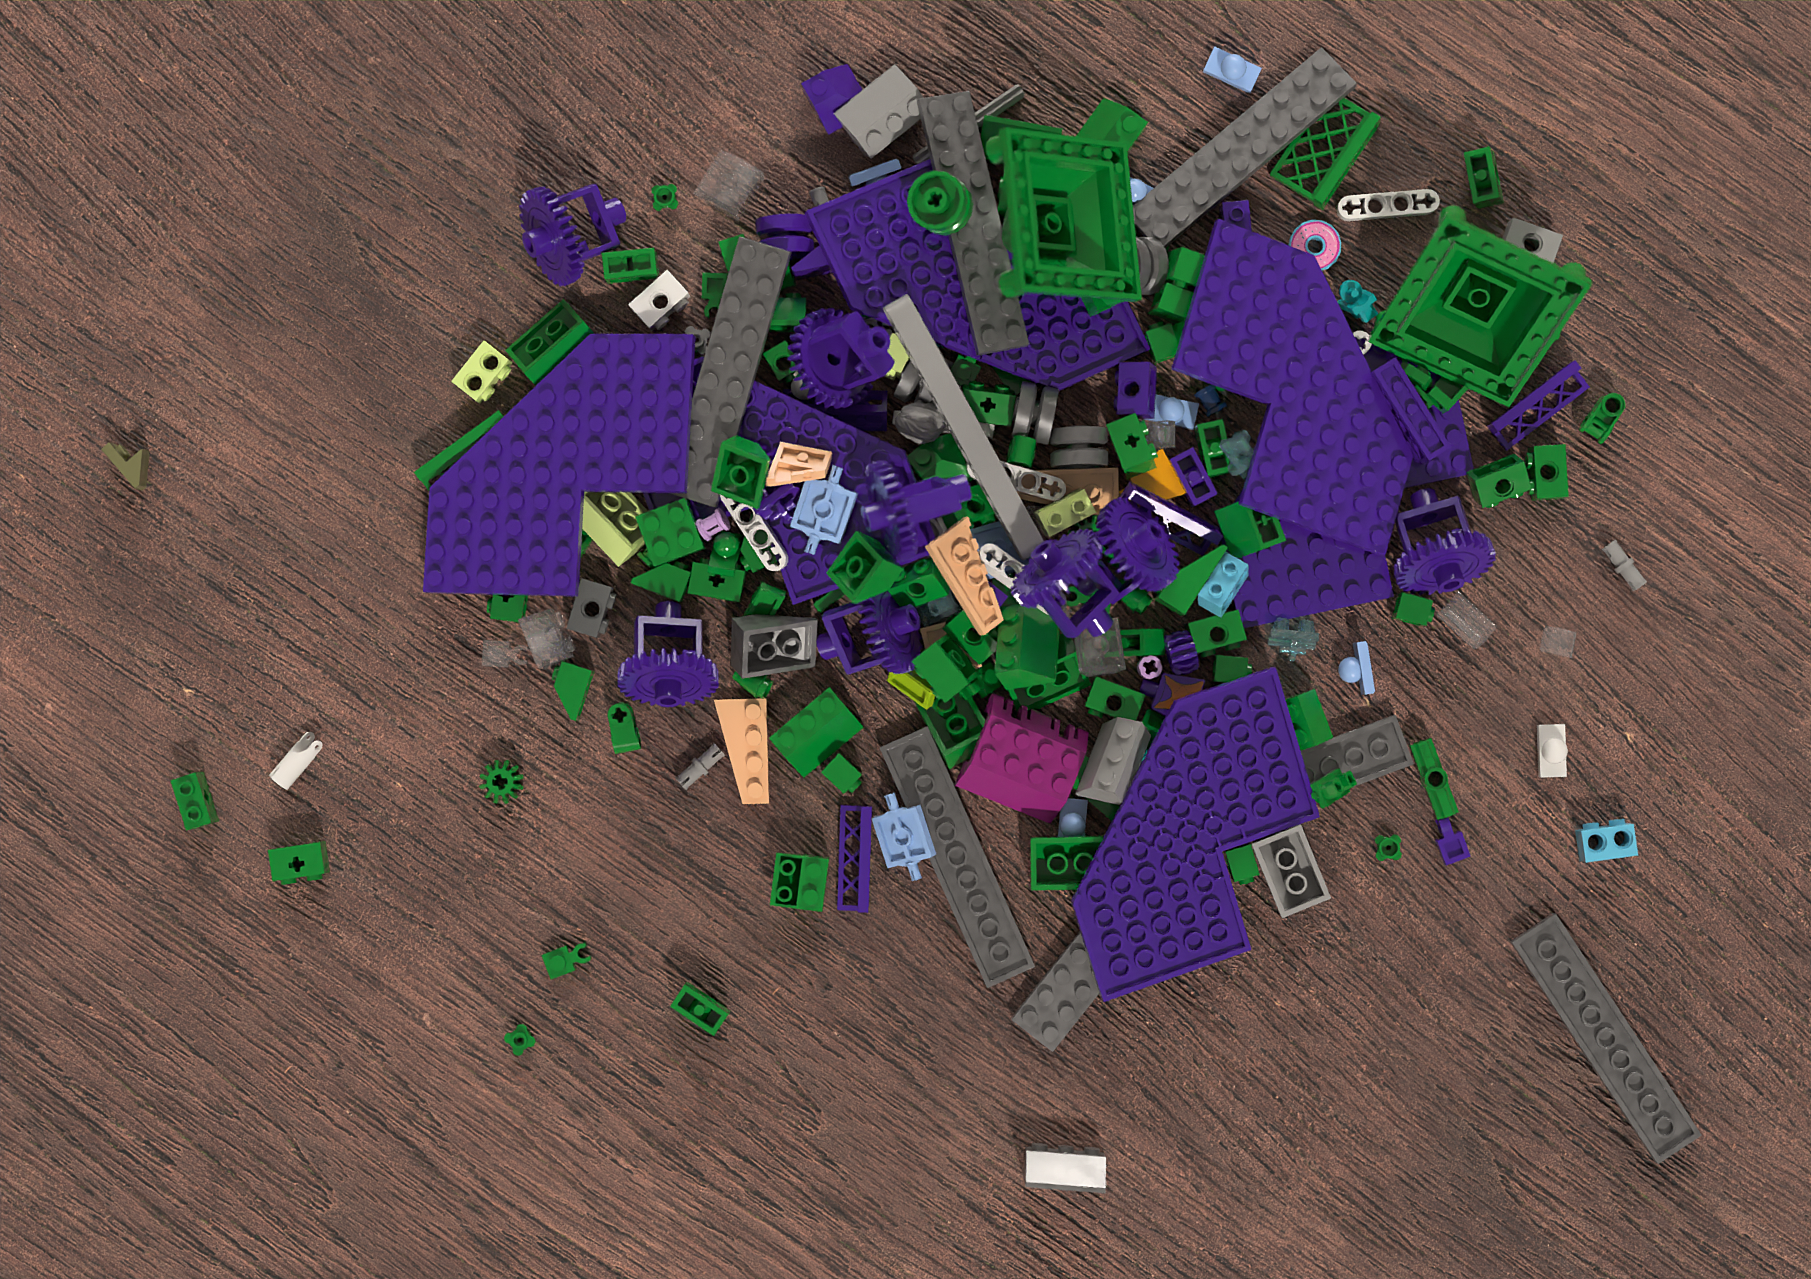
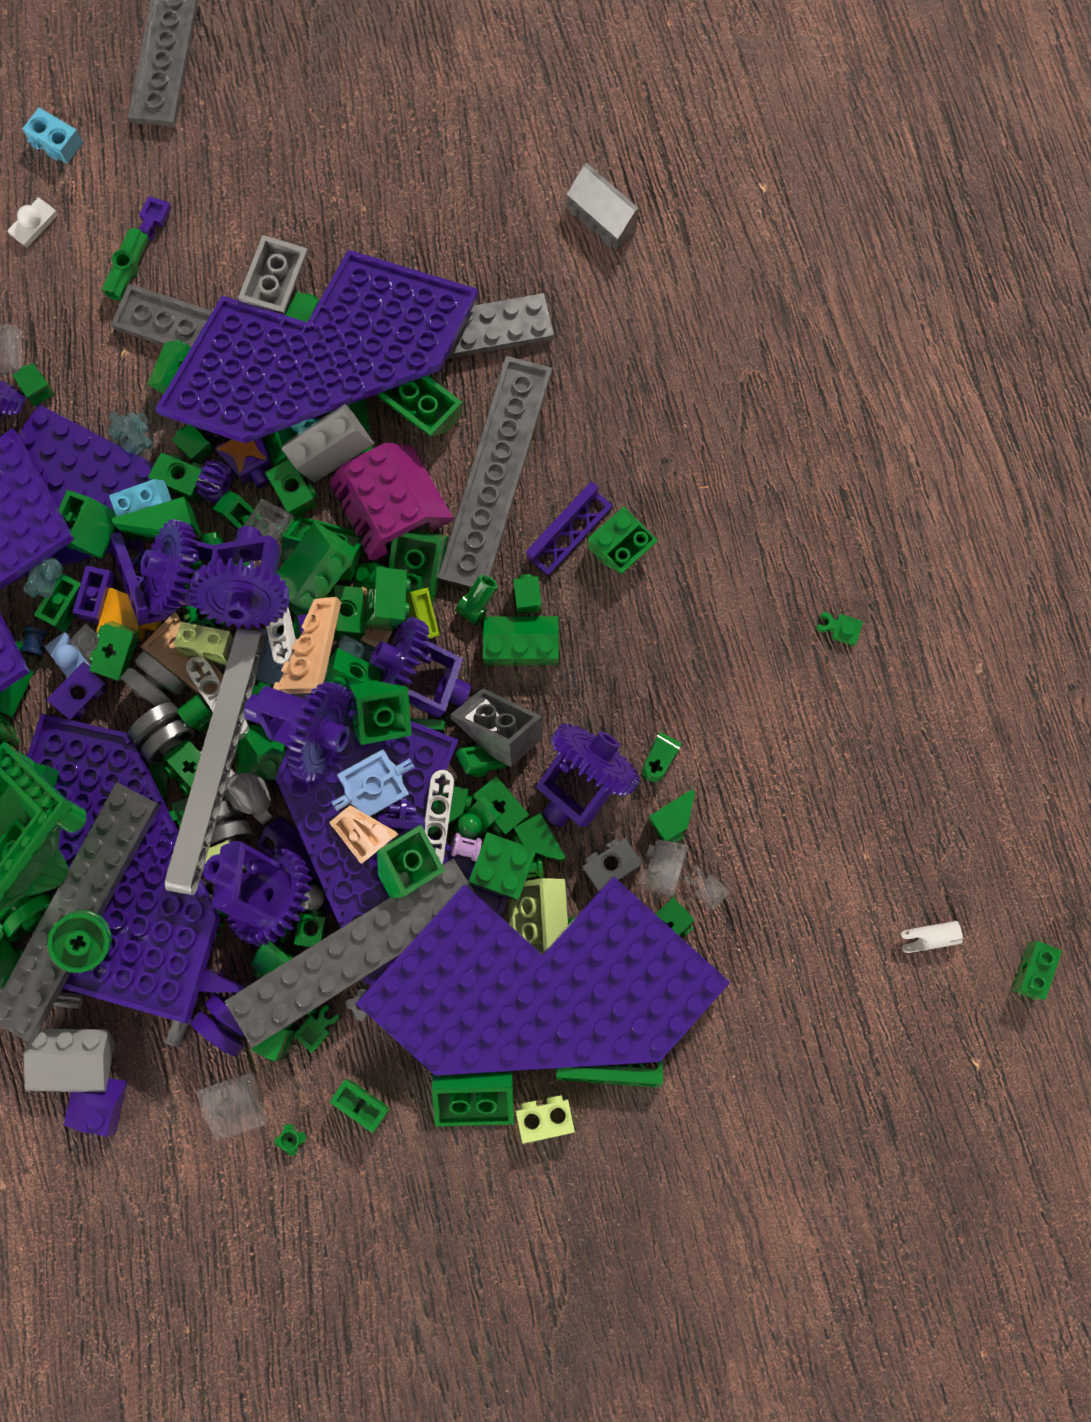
camera: 145 degrees left, 10 degrees down
(133, 469) = (886, 1279): olive slope -> none
(314, 858) = (975, 858): green brick -> none
(498, 790) = (793, 790): green gear -> none
(527, 1039) = (915, 602): green plate -> none
(551, 236) = (398, 1177): dark purple piece -> none
(664, 286) = (348, 1066): white brick -> none
(700, 766) = (627, 684): light grey pin -> none
(700, 1008) = (769, 511): green brick -> none
(747, 744) = (576, 676): light nougat wing -> none
(757, 686) = (537, 706): green cone -> none
(874, 173) = (118, 1016): light blue tile -> none
(877, 731) = (473, 605): none -> green piece
(903, 836) = (520, 513): light blue plate -> none
(1073, 818) = (395, 430): light blue tile -> none
(1146, 659) = (249, 485): lavender bush -> none
(1161, 342) = (27, 710): green brick -> none
(1332, 787) = (194, 305): green hips -> none
(1358, 668) = (105, 374): light blue tile -> none
(1394, 852) = (194, 241): green plate -> none

